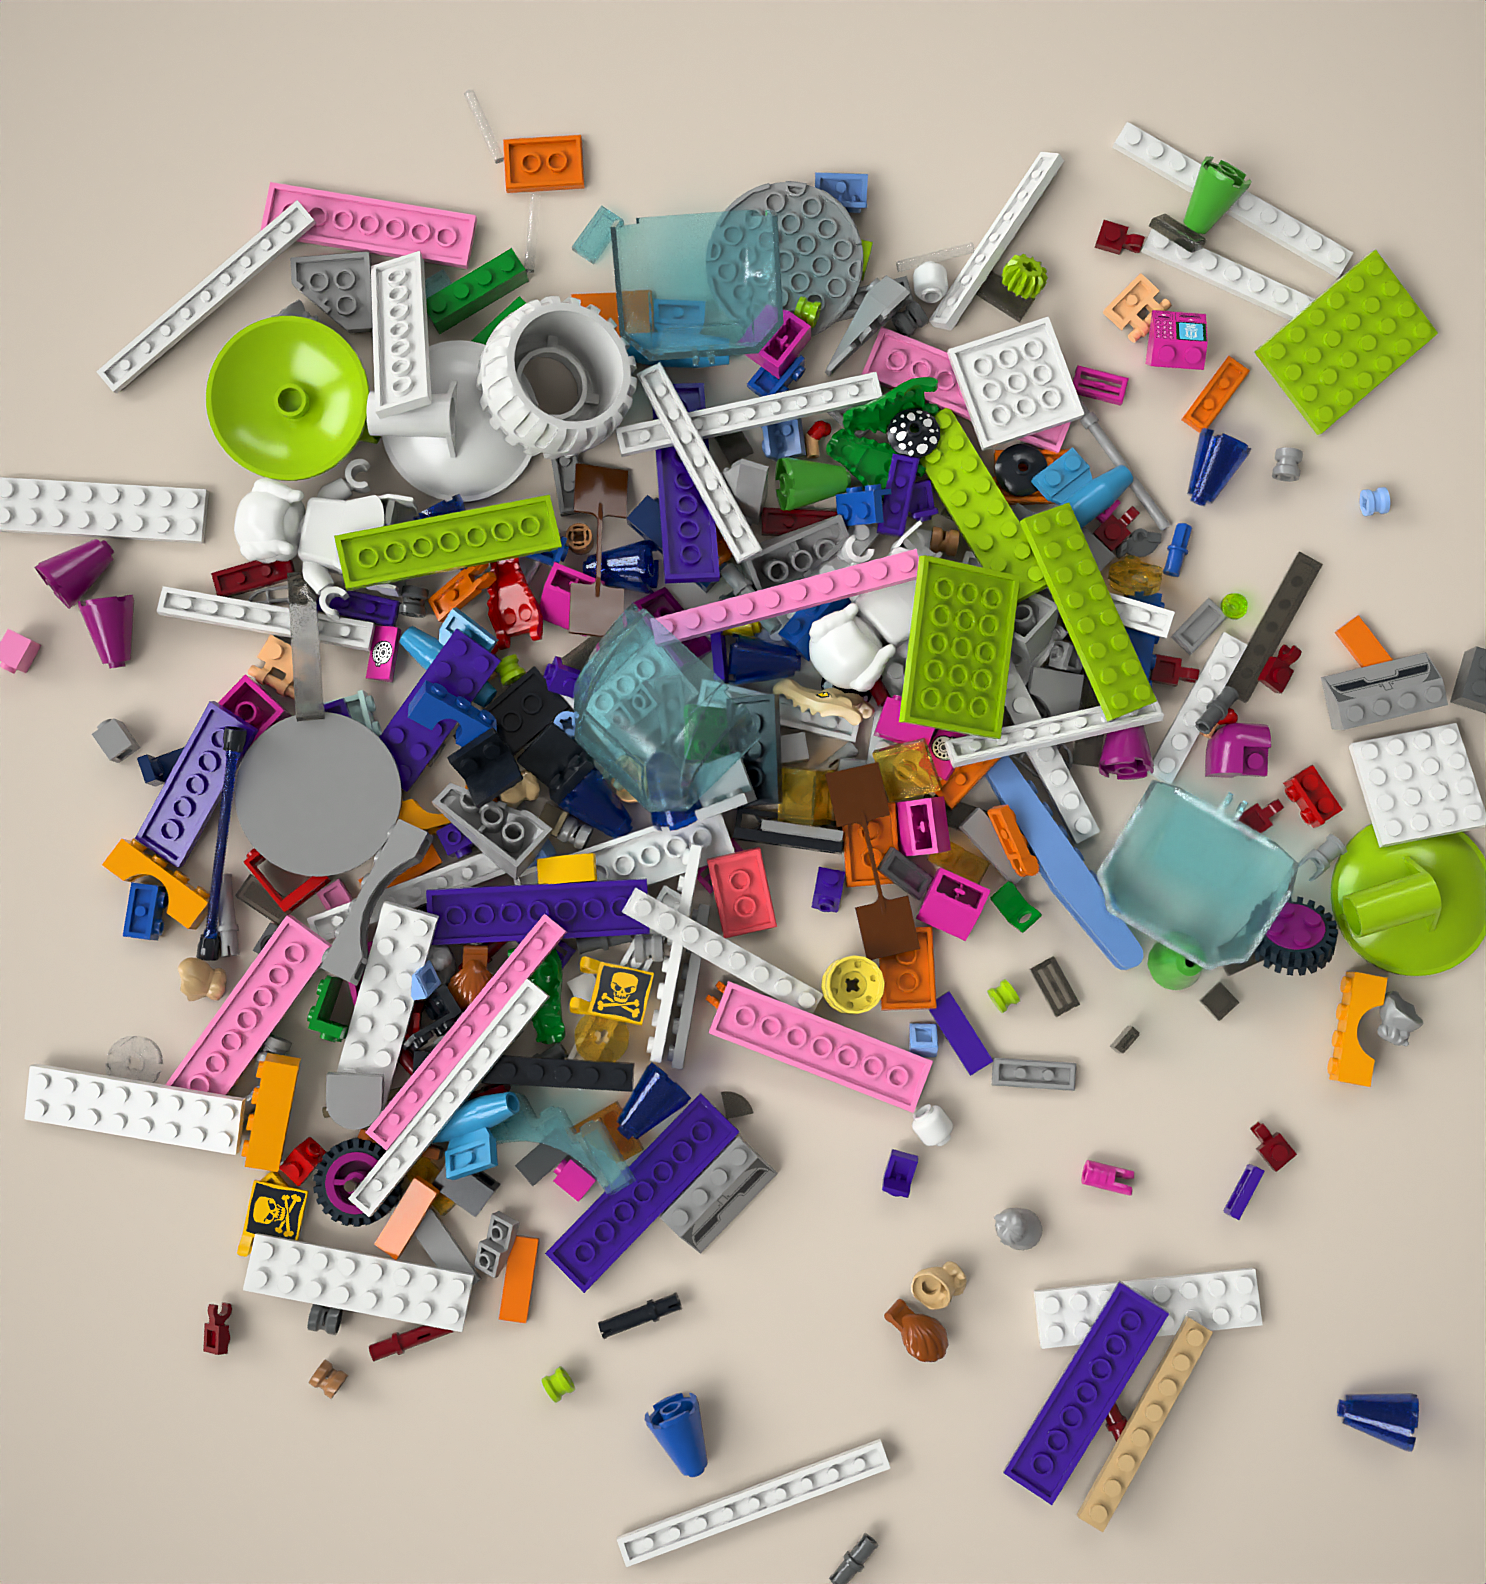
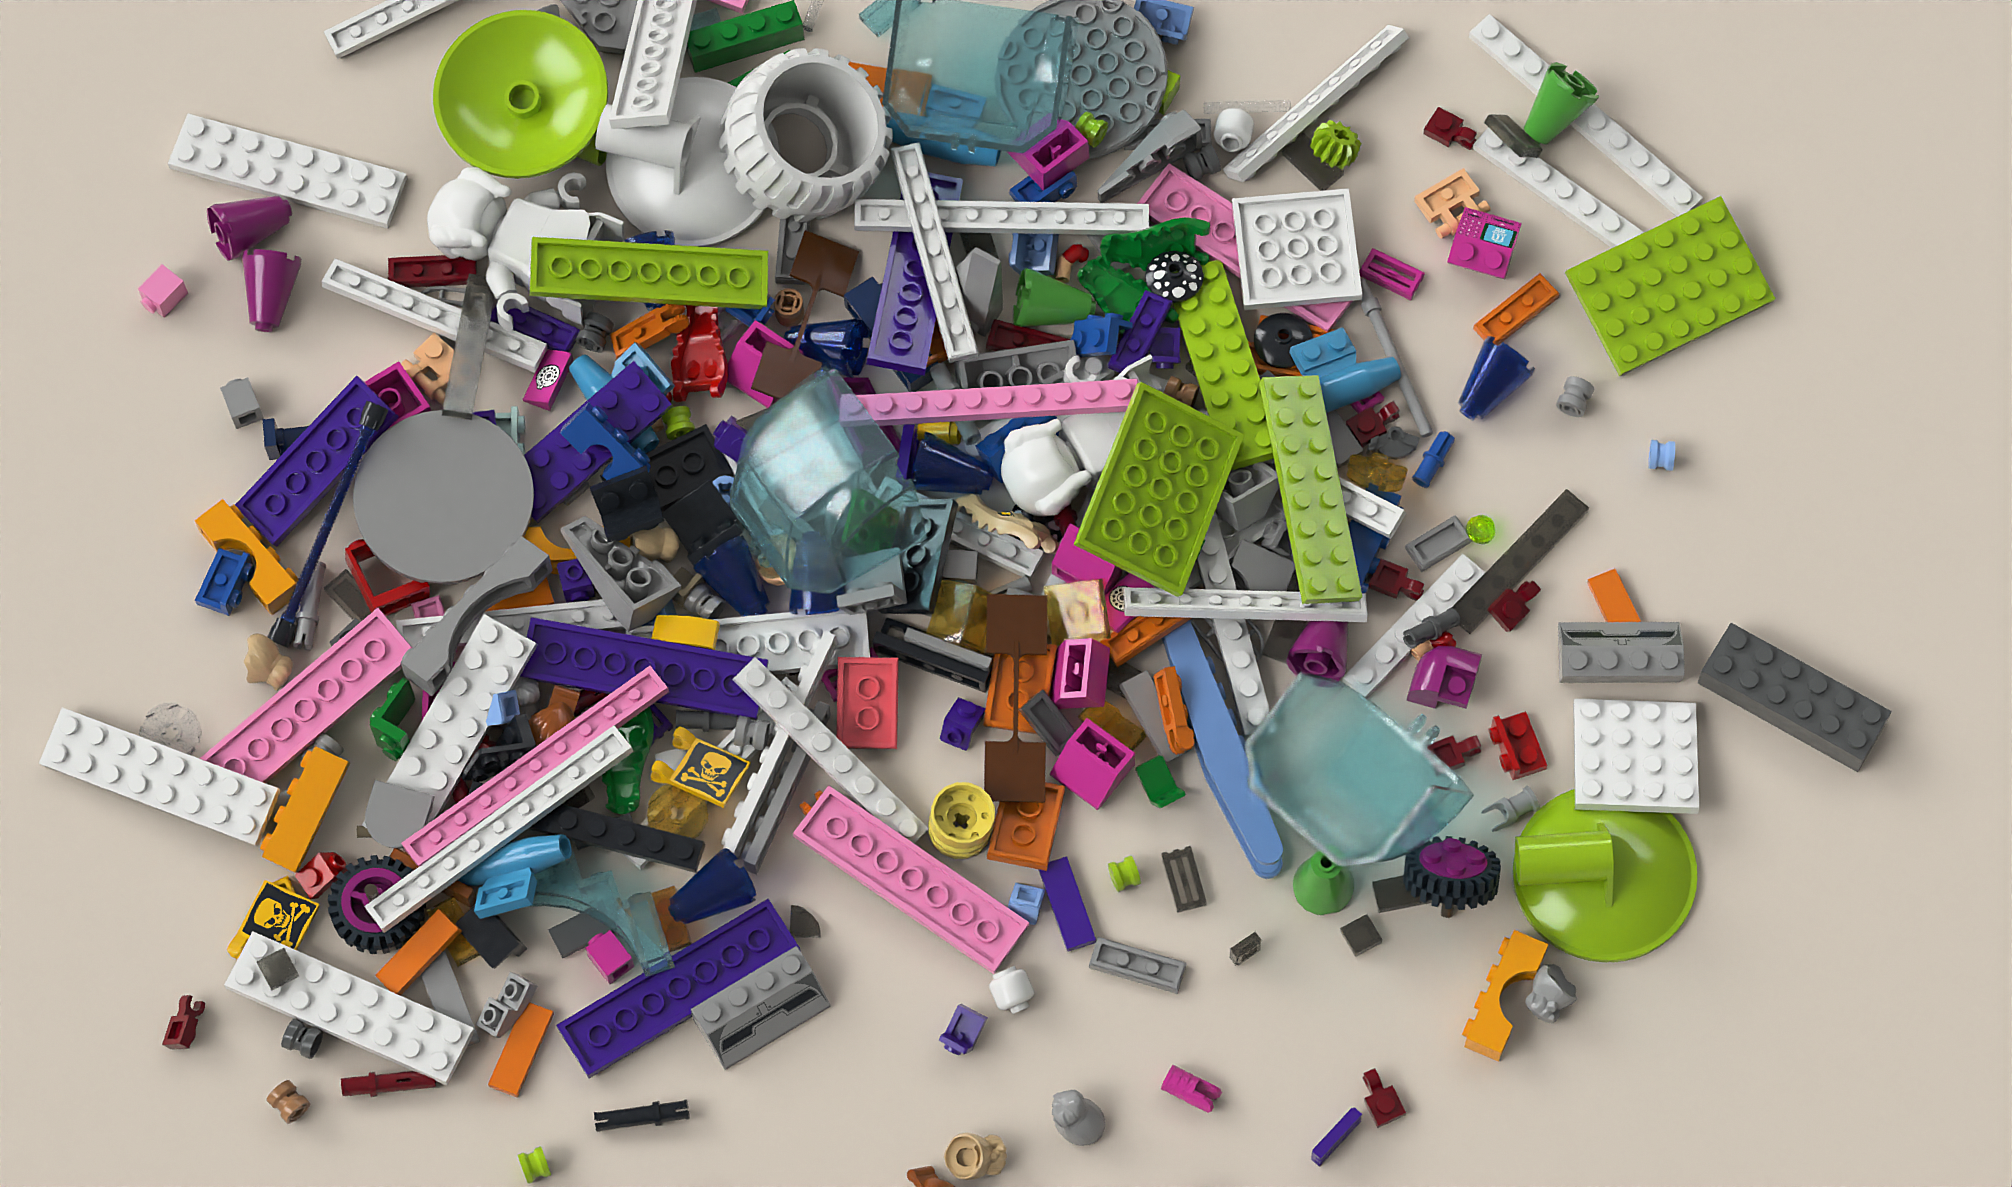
camera: 15 degrees right, 15 degrees down
(286, 1268) = (277, 969): none -> clear smoke tile

